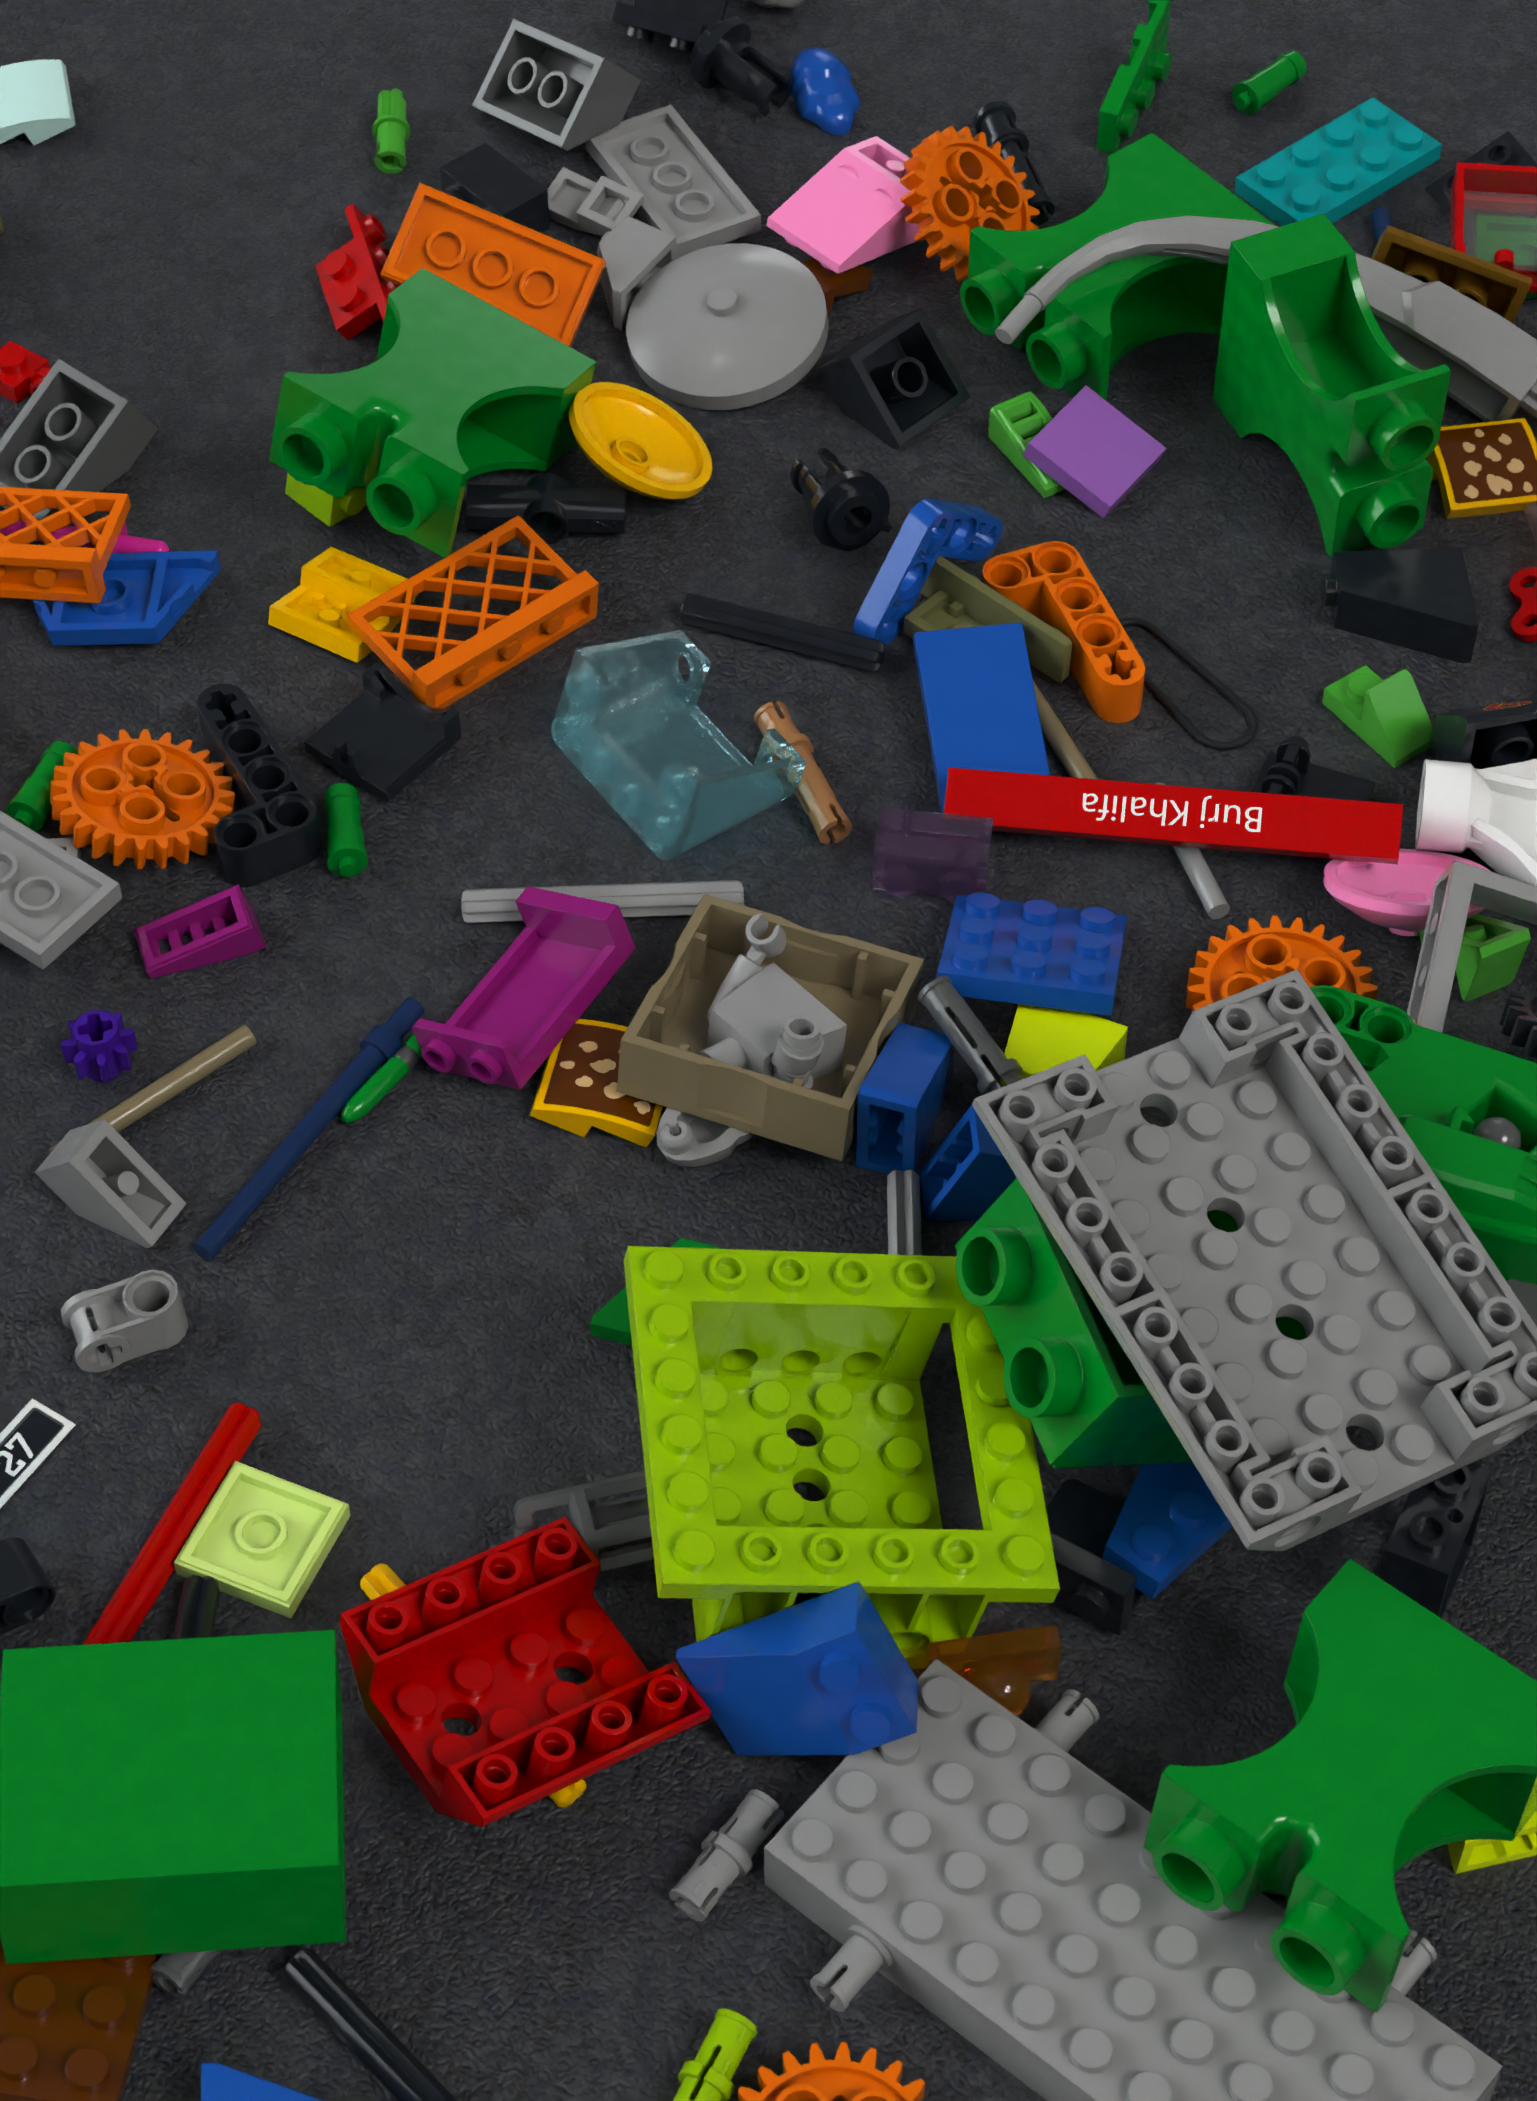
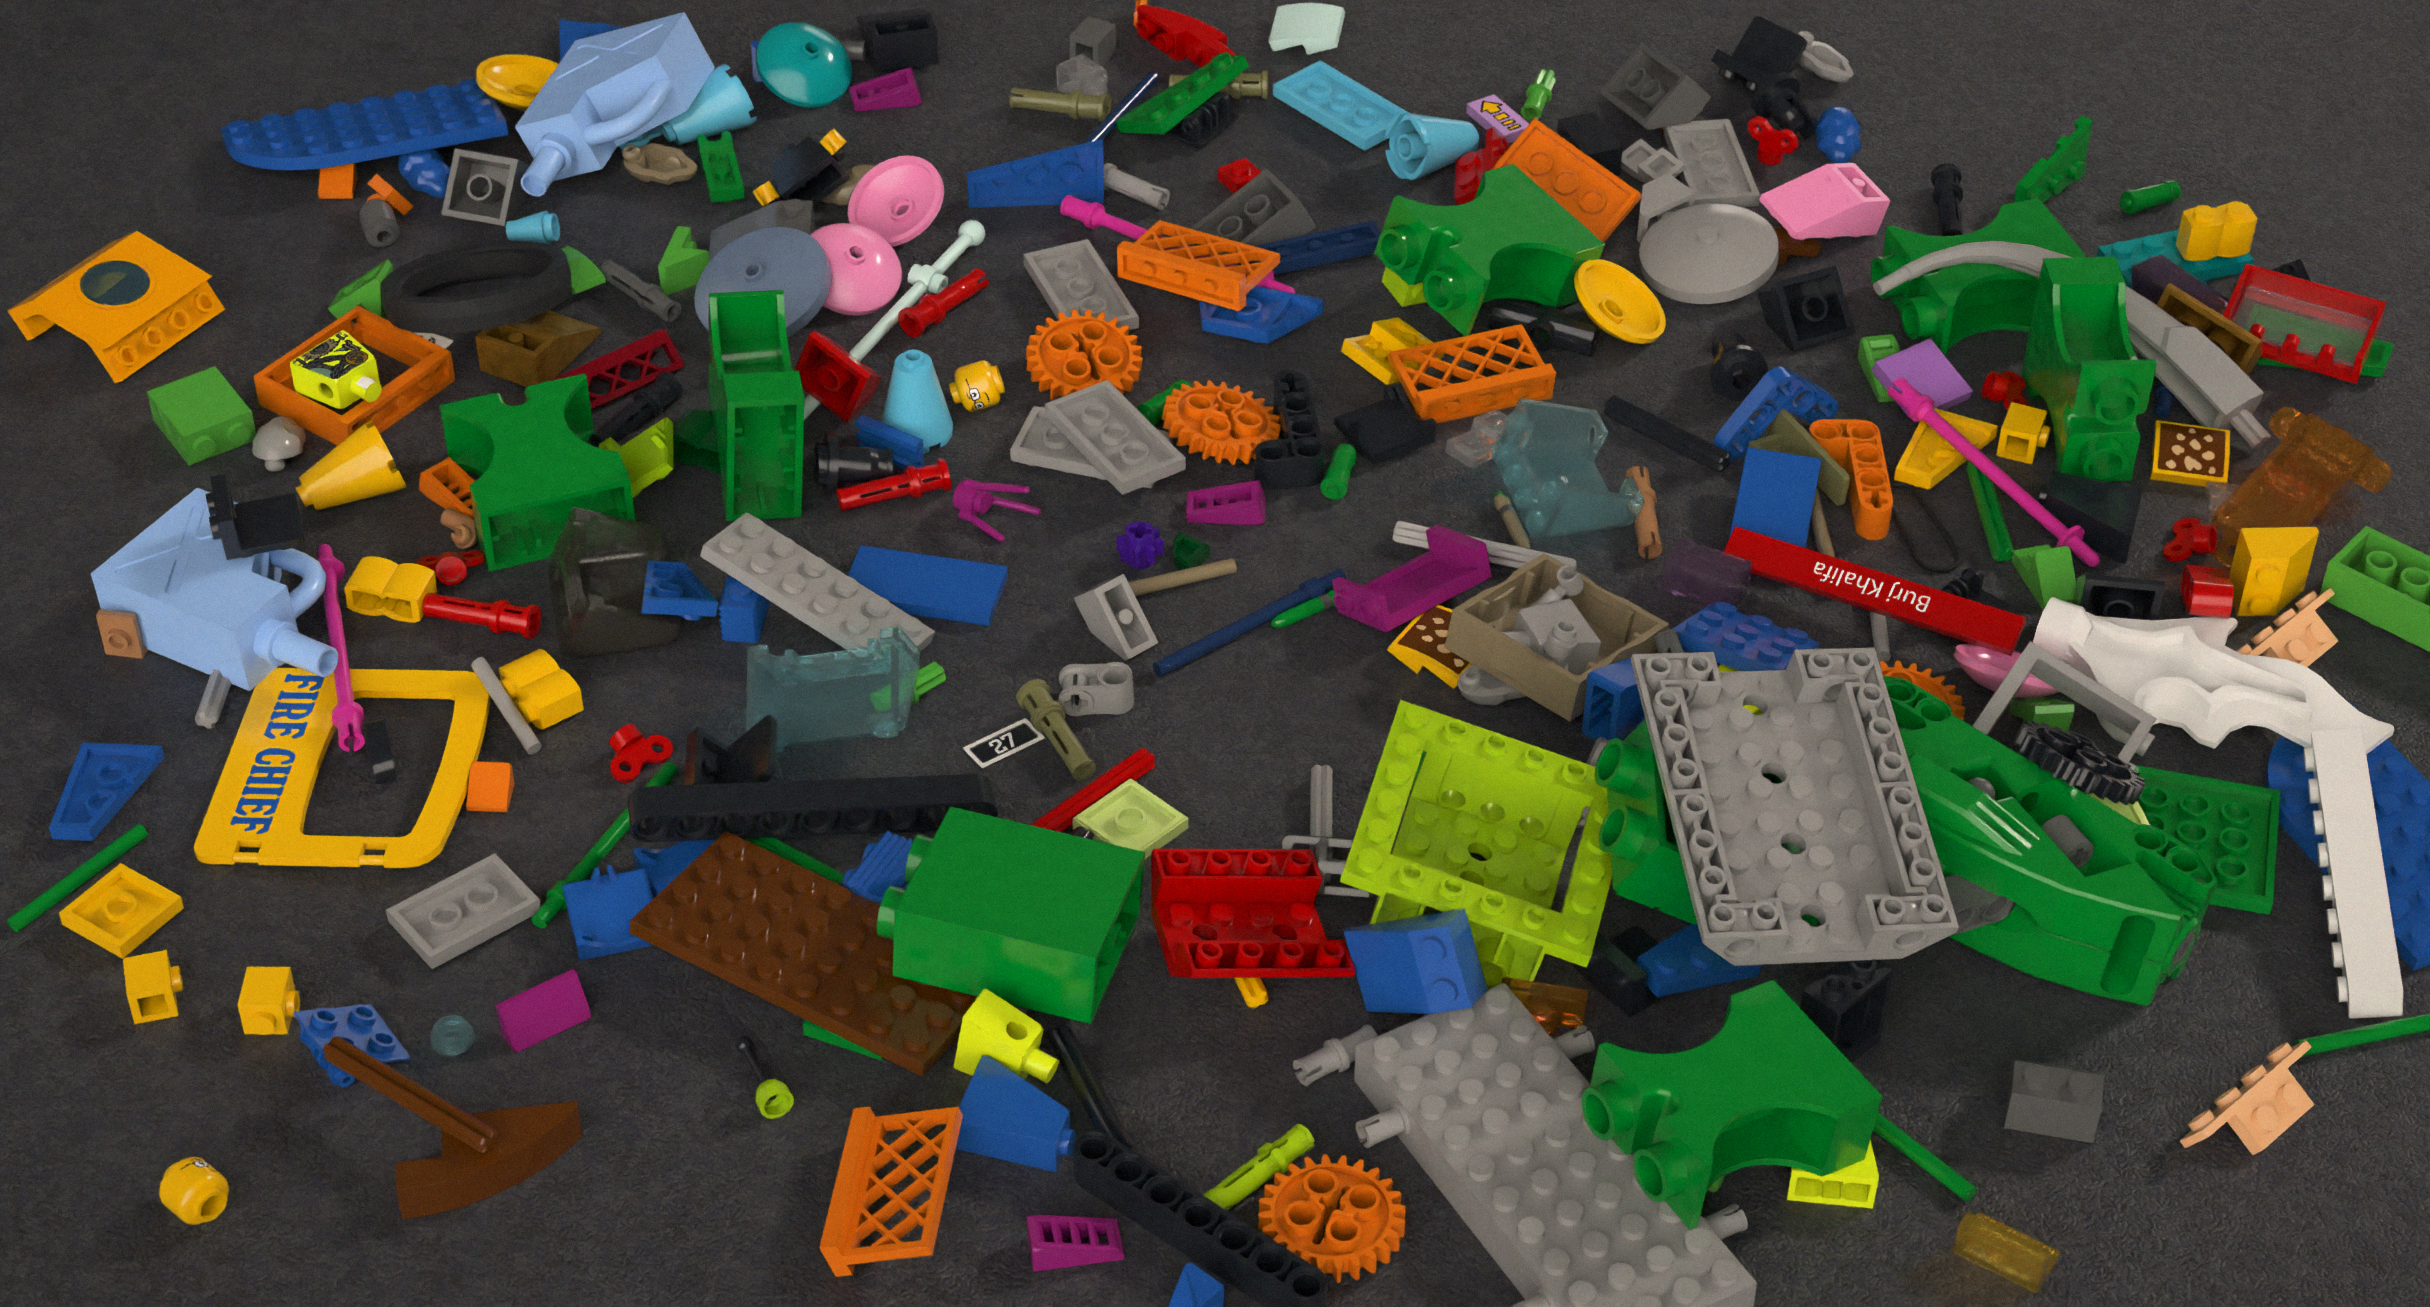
camera: 20 degrees right, 10 degrees down
(73, 1395) = (1049, 718): none -> olive pin
(118, 218) = (1338, 104): none -> medium azure plate
(173, 1033) = (1189, 552): none -> dark green tile
(182, 458) = (1324, 247): none -> dark blue plate
(227, 2021) = (1006, 1035): none -> neon yellow torso
(267, 254) = (1427, 143): none -> medium azure cone
(348, 182) = (1495, 113): none -> lavender tile
(525, 723) = (1477, 445): none -> clear slope
(537, 1420) = (1321, 802): none -> light grey axle
(622, 840) = (1511, 520): none -> dark tan piece
(742, 125) = (1772, 142): none -> red piece
(960, 186) = (1899, 199): orange gear -> none
(1121, 502) = (1921, 408): none -> dark pink bar
(1160, 549) = (1932, 458): none -> yellow wing
(1207, 431) = (2004, 387): none -> red piece
(1261, 498) = (2023, 433): none -> yellow brick
(1264, 630) = (1990, 514): none -> green axle
(1365, 211) = (2156, 272): none -> clear purple slope
(1389, 119) = (2216, 231): none -> yellow brick

